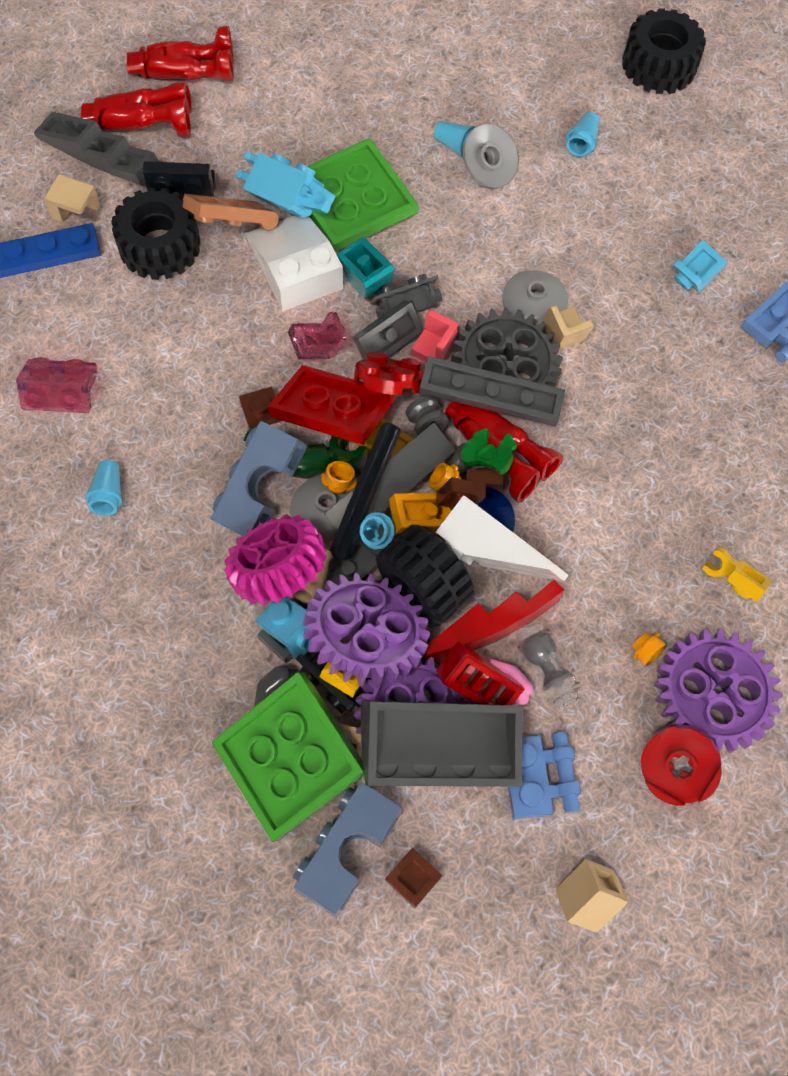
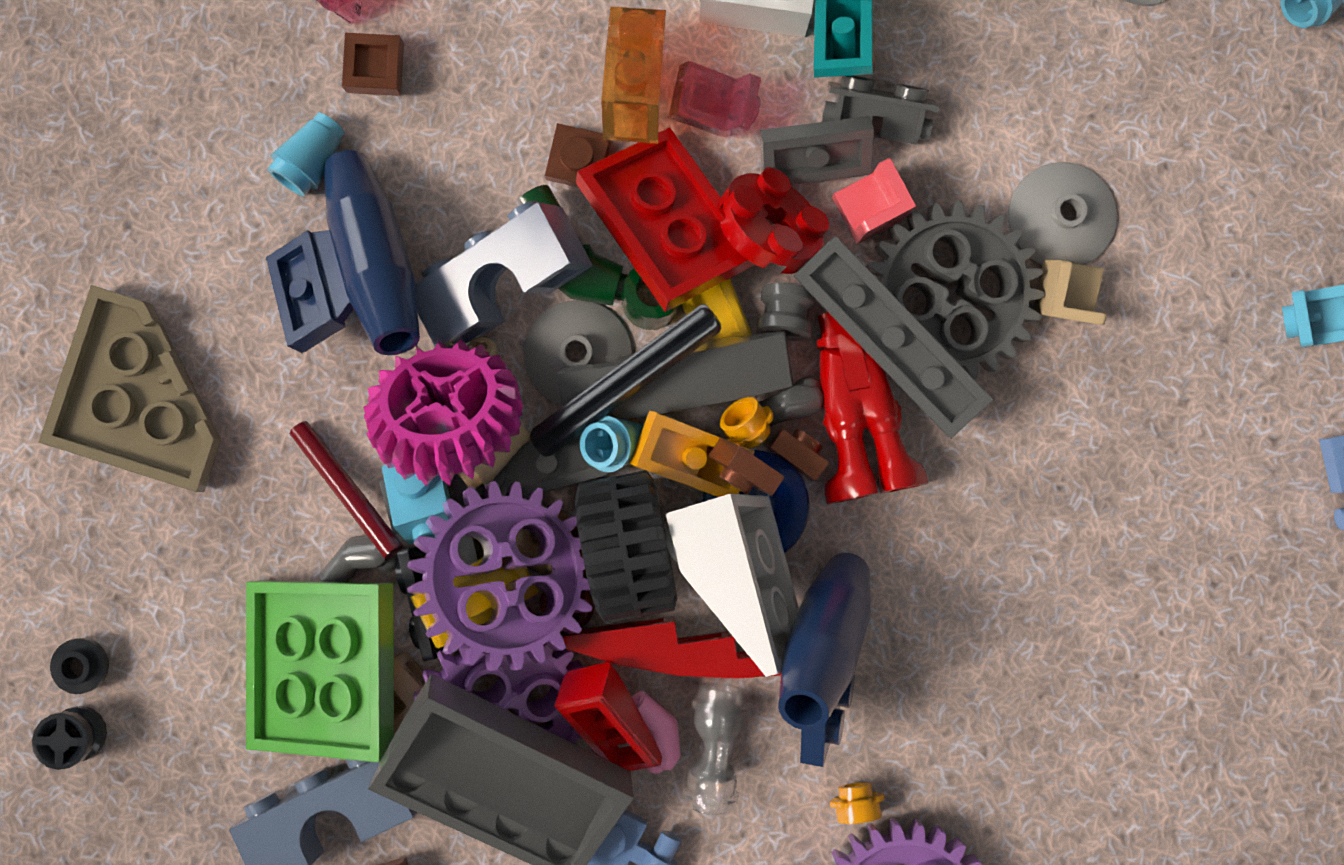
camera: 35 degrees right, 20 degrees up
(76, 680) = (130, 397): none -> dark tan plate
(115, 422) = (372, 64): none -> copper plate
(145, 865) = (94, 662): none -> black plate
(149, 900) = (57, 745): none -> black wheel
(173, 514) = (349, 267): none -> dark blue plate
(240, 652) = (346, 490): none -> dark red bar
(268, 345) = (633, 74): none -> clear orange brick
(339, 477) = (612, 316): light orange plate -> none
(480, 452) = (814, 415): green piece -> none
(574, 557) = (824, 655): none -> dark blue plate
(744, 578) = (1048, 792): yellow plate -> none

